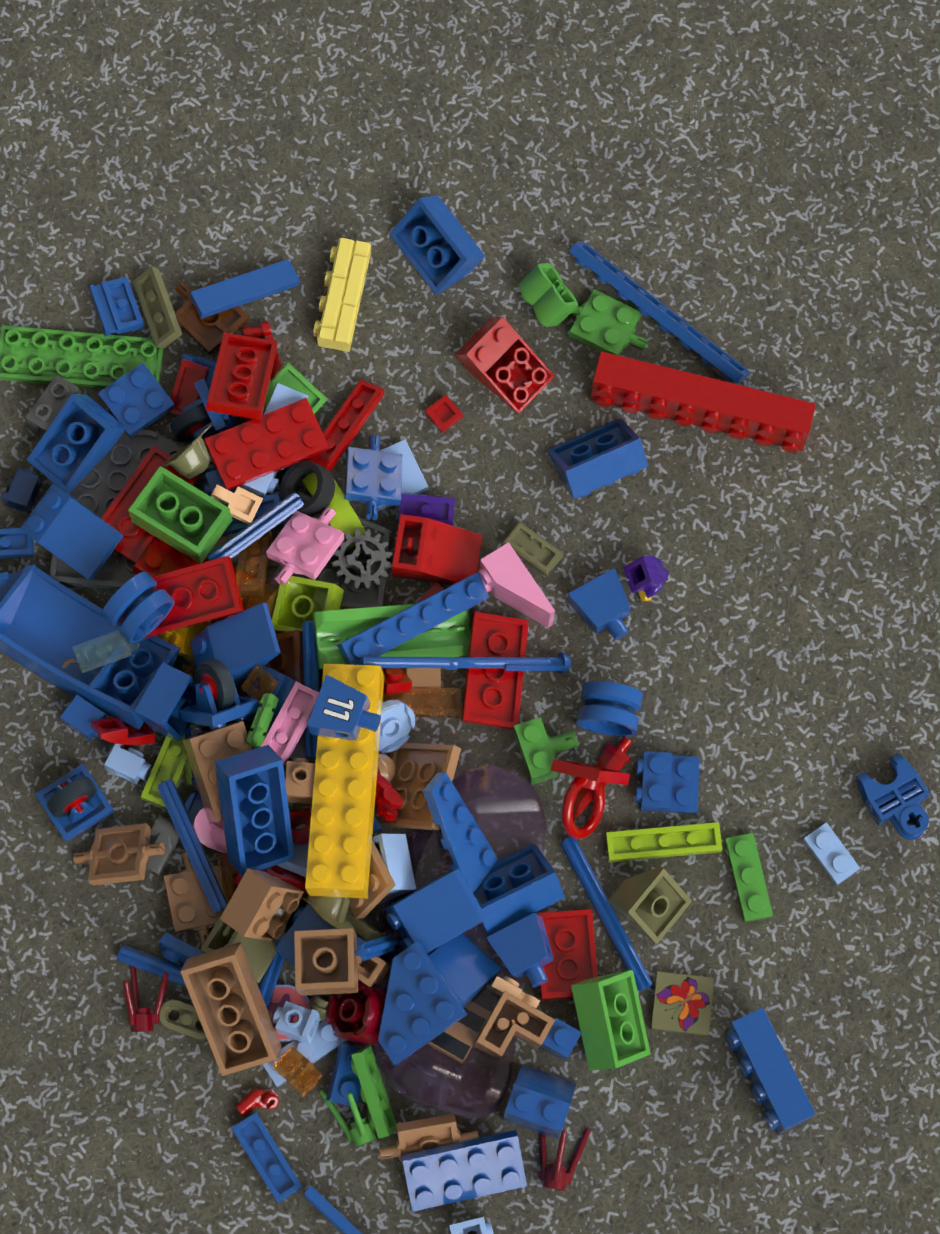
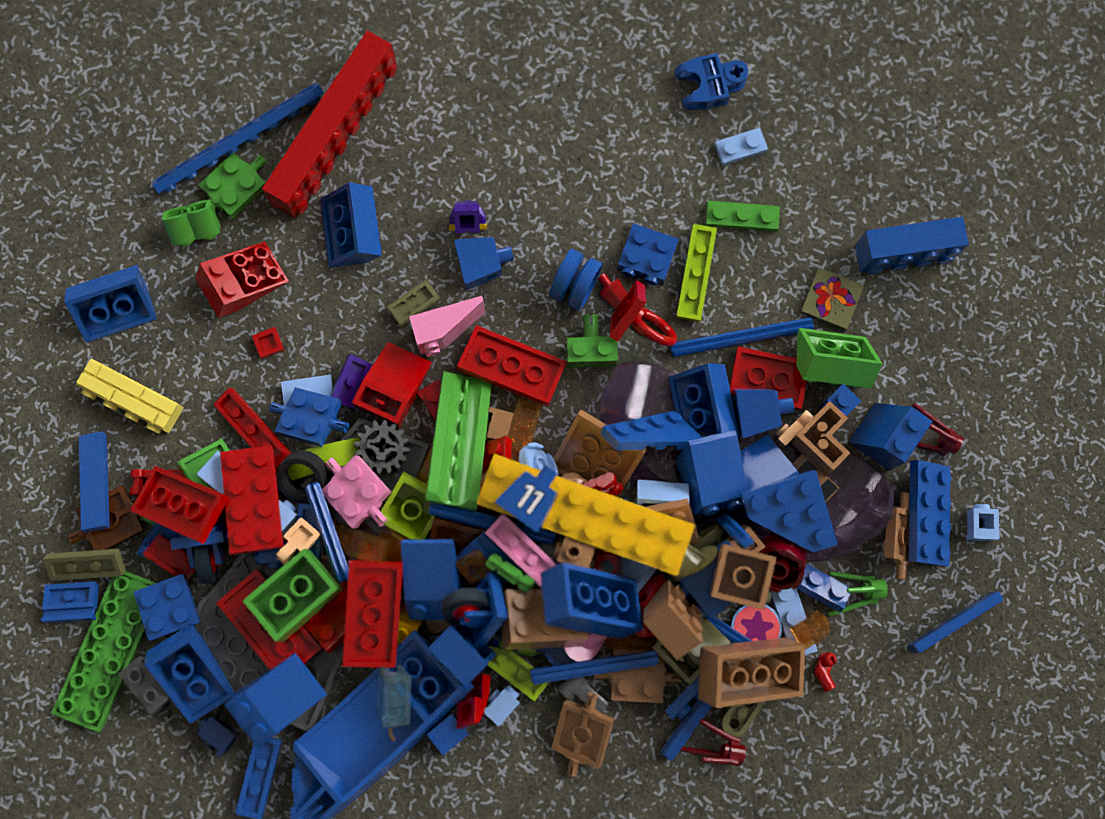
camera: 75 degrees left, 5 degrees up
(74, 802) = (522, 762): blue plate -> none
(138, 607) = (369, 658): blue wheel -> none
(190, 459) = (240, 571): olive piece -> none
(267, 1157) = (876, 676): blue plate -> none
(303, 1029) = (772, 608): light blue brick -> none
(373, 1092) = (847, 569): bright green plate -> none
(414, 620) = (454, 419): blue plate -> none
(561, 663) = (520, 312): blue bar -> none
(650, 902) = (744, 299): olive slope -> none

